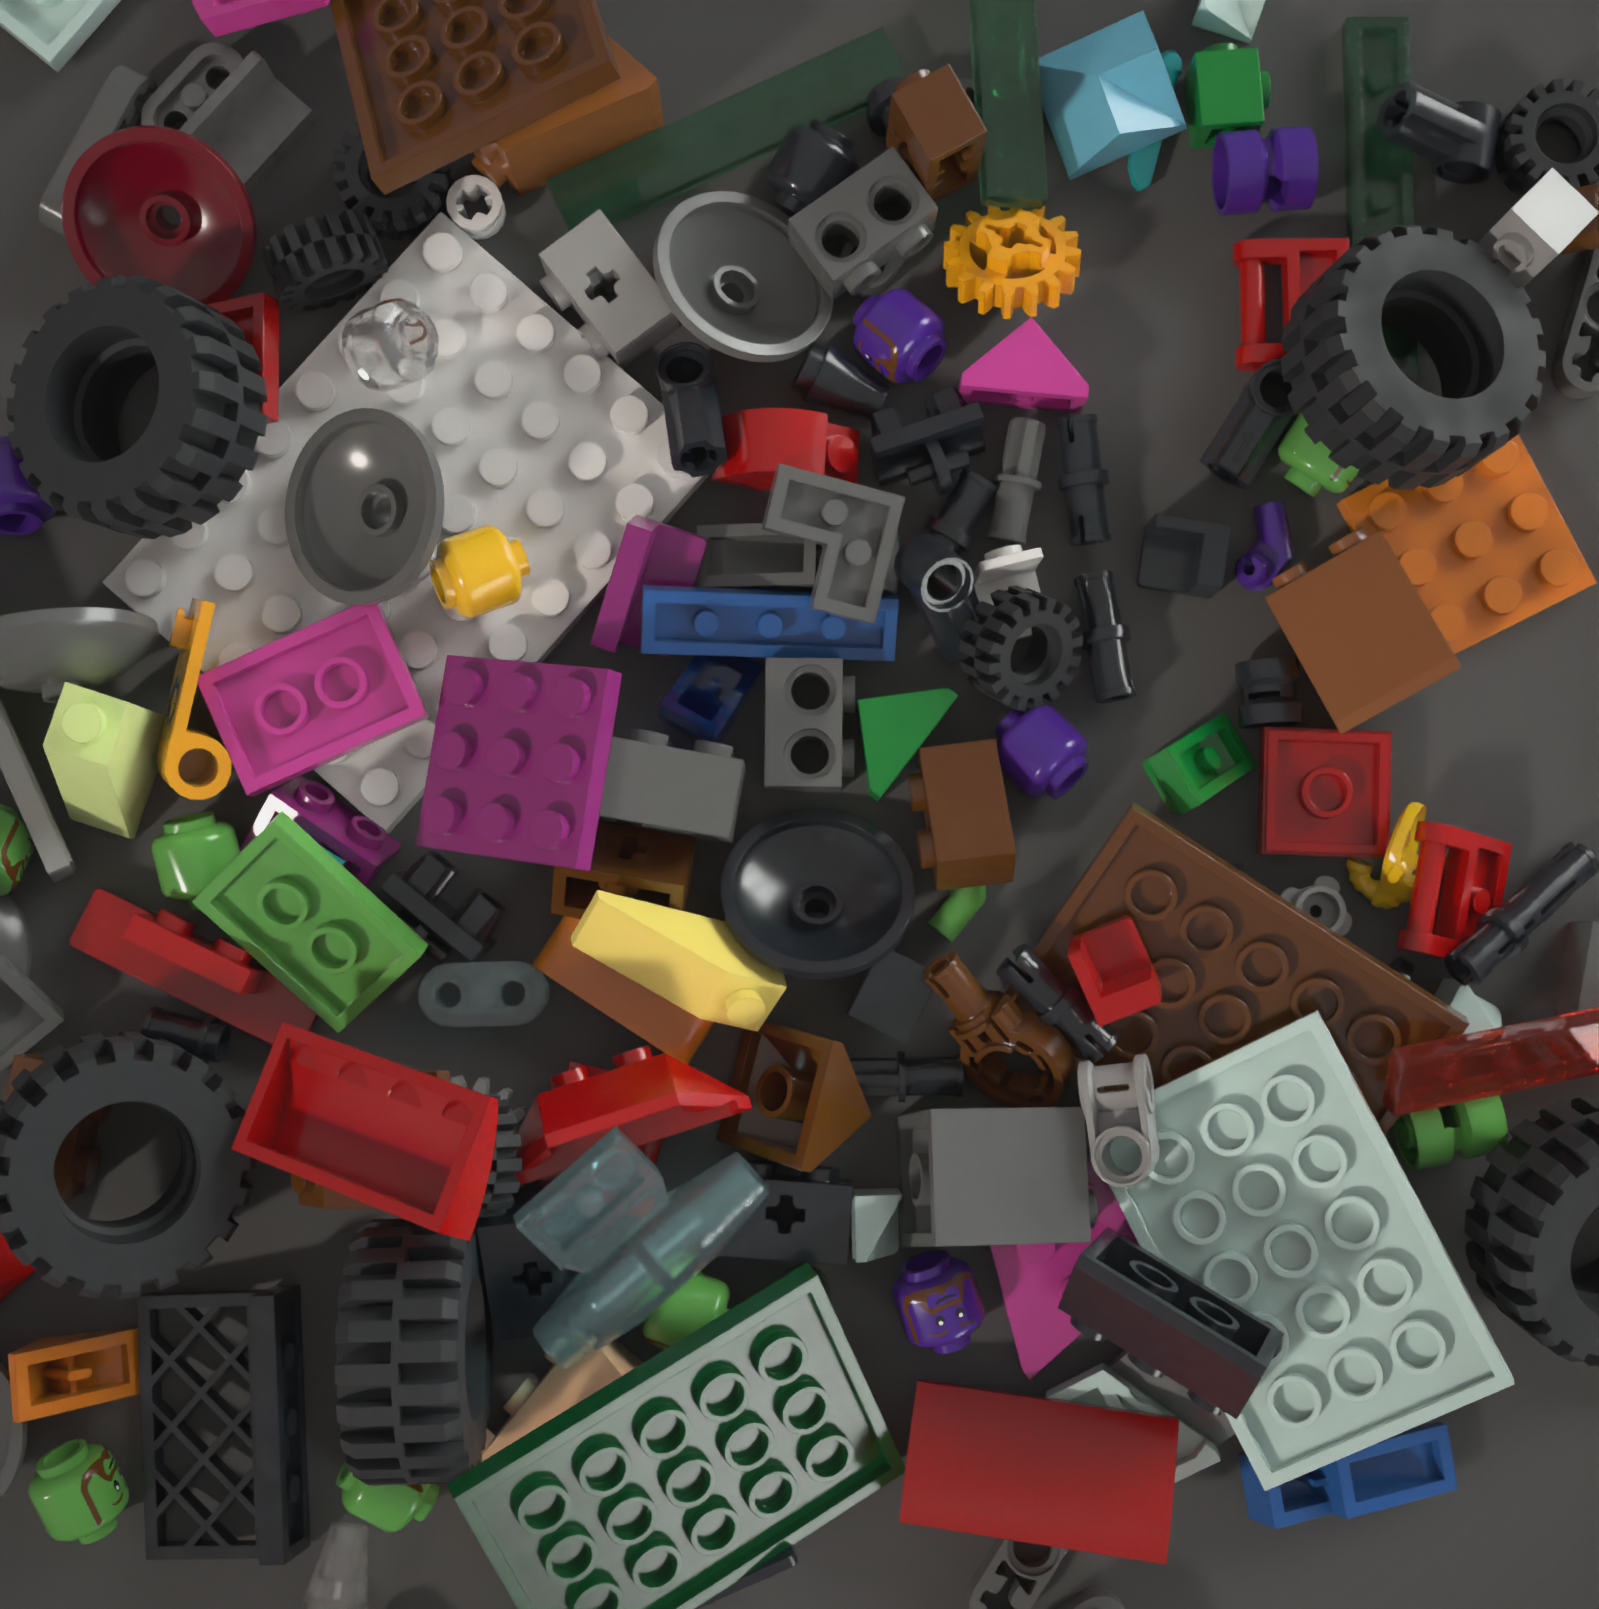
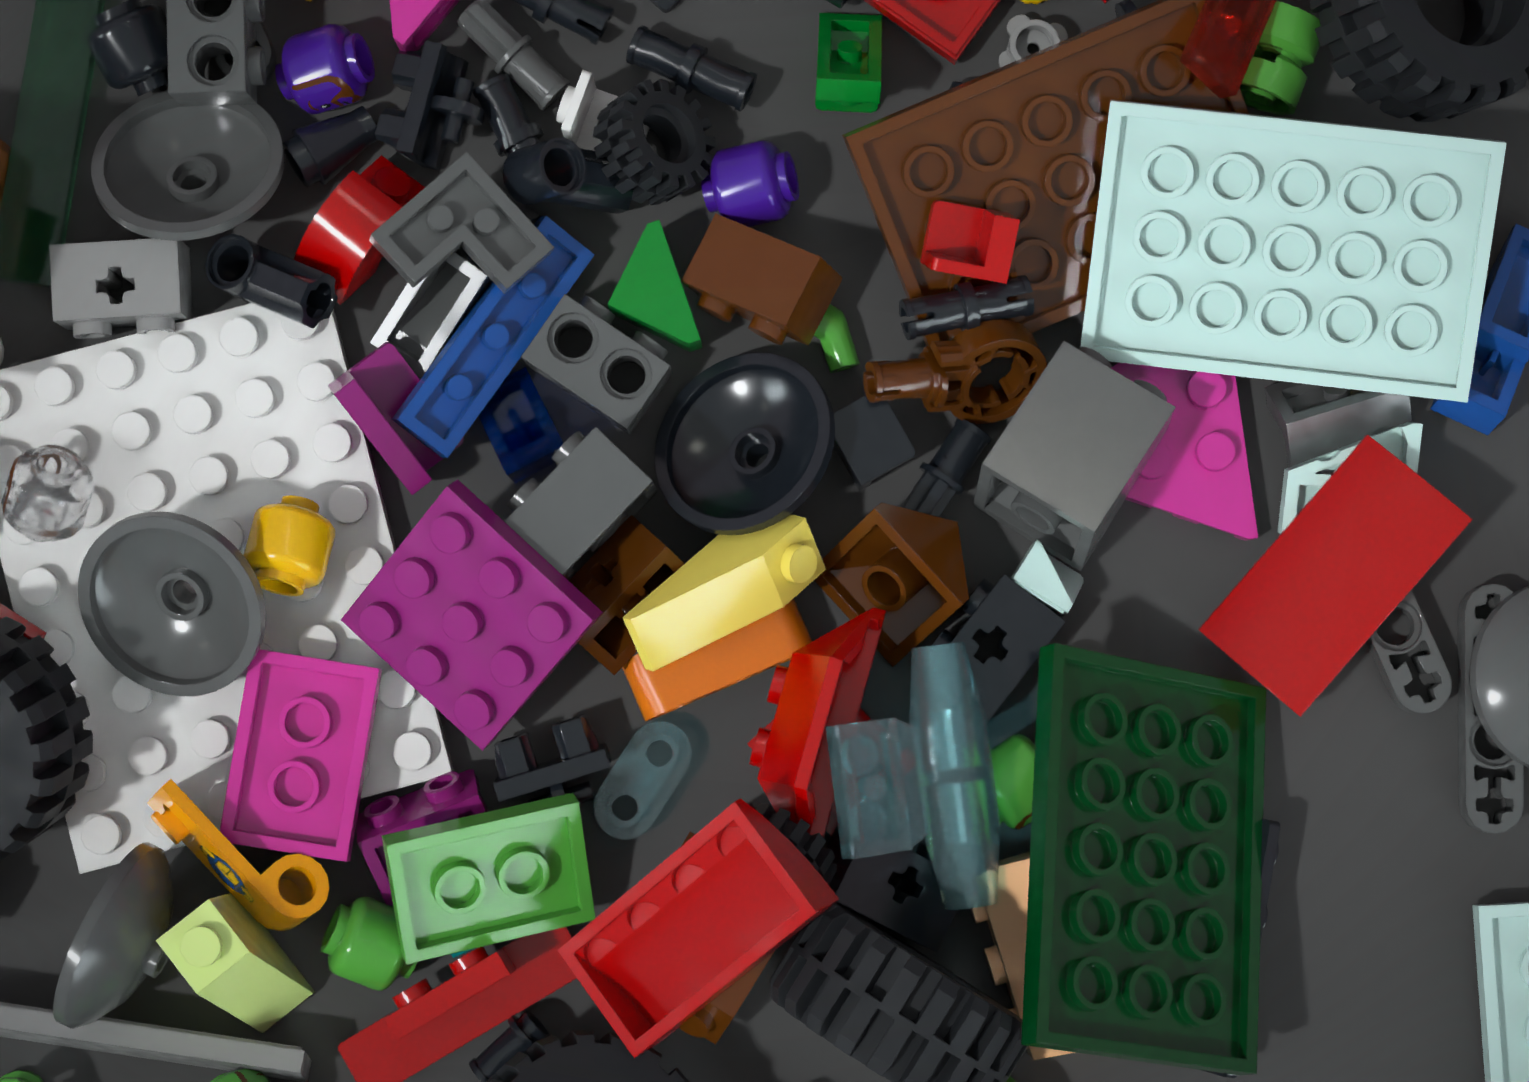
camera: 50 degrees left, 0 degrees up
(937, 1301) = (1145, 569): dark purple head -> none
(1119, 1114) = (1088, 315): light grey piece -> none
(1169, 1323) = (1281, 389): black slope -> none

